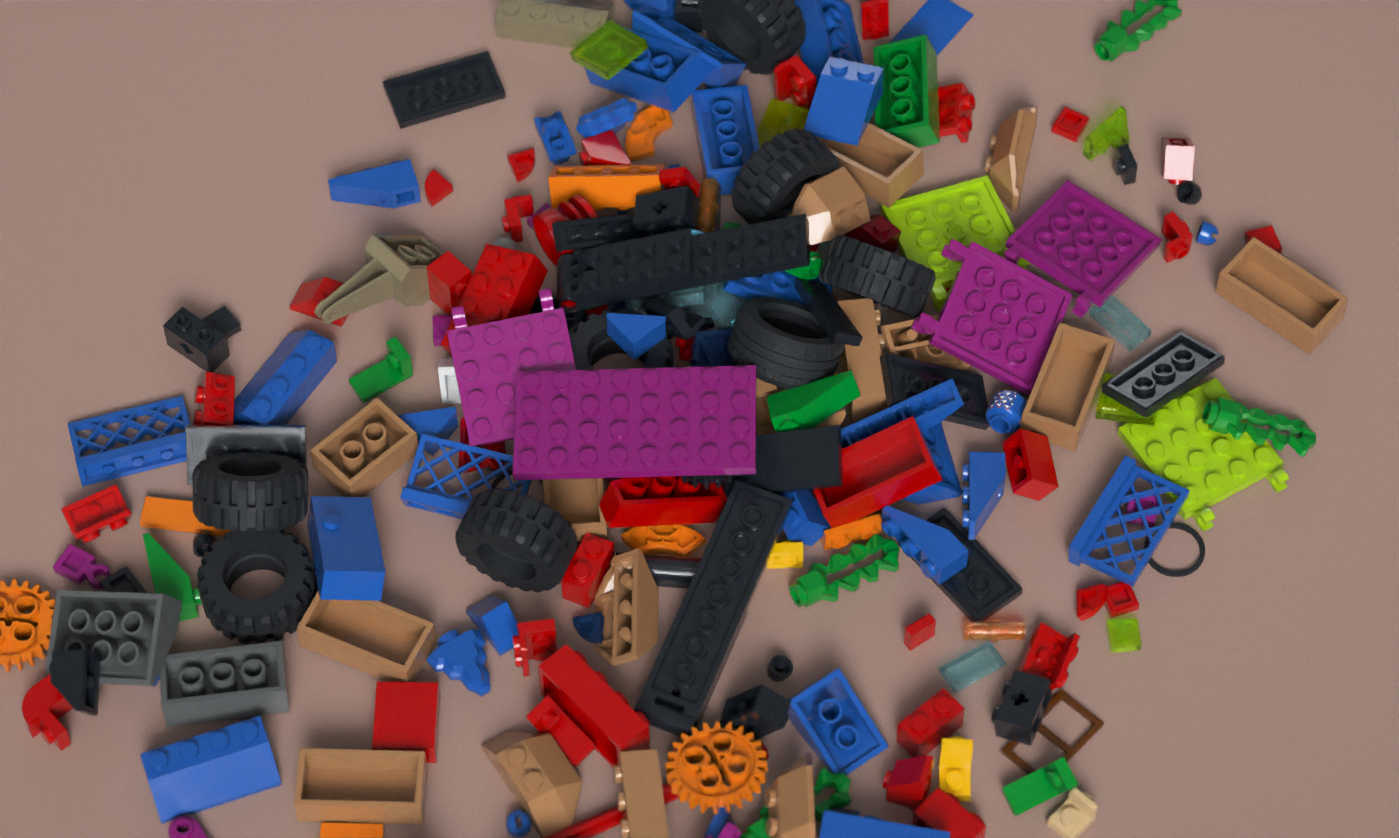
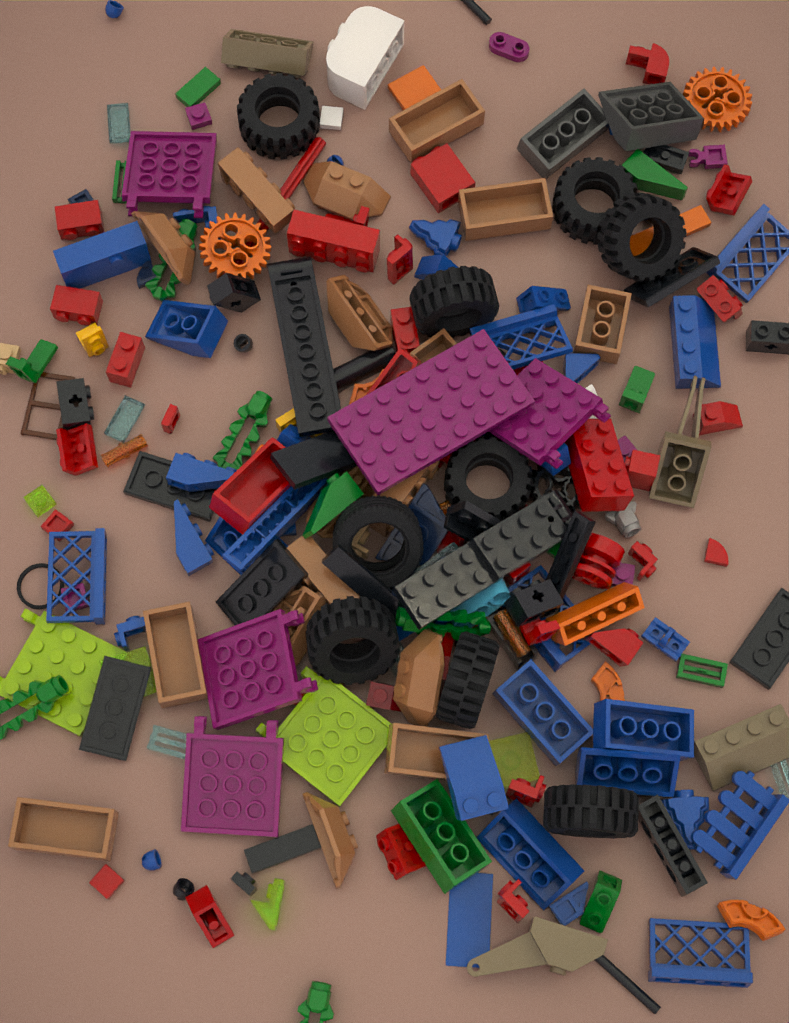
camera: 145 degrees right, 15 degrees up
(77, 678) = (645, 75): black slope -> none
(210, 769) = (532, 88): blue slope -> none
(223, 322) = (768, 364): black tile -> none
(345, 548) = (557, 242): blue brick -> none
(381, 186) = (747, 527): blue slope -> none
(409, 515) = (538, 297): none -> blue bracket
(522, 163) = (673, 611): red tile -> none
(532, 108) = (698, 679): none -> green tile
(590, 627) = (378, 301): dark blue tile -> none
(607, 118) = (638, 671): blue rock -> none
(608, 50) = (676, 721): clear neon green tile -> none
(636, 332) = (485, 485): blue slope -> none
(909, 781) = (114, 312): red slope -> none
(1005, 411) = (207, 611): blue head -> none
(1030, 464) = (167, 578): red brick -> none
(1054, 174) = (282, 849): none -> black tile
(1070, 124) = (309, 902): red tile -> none
(1090, 600) = (74, 509): red tile -> none
(1100, 444) = (133, 626): none -> blue bracket
(1178, 237) = (171, 844): red bracket -> none

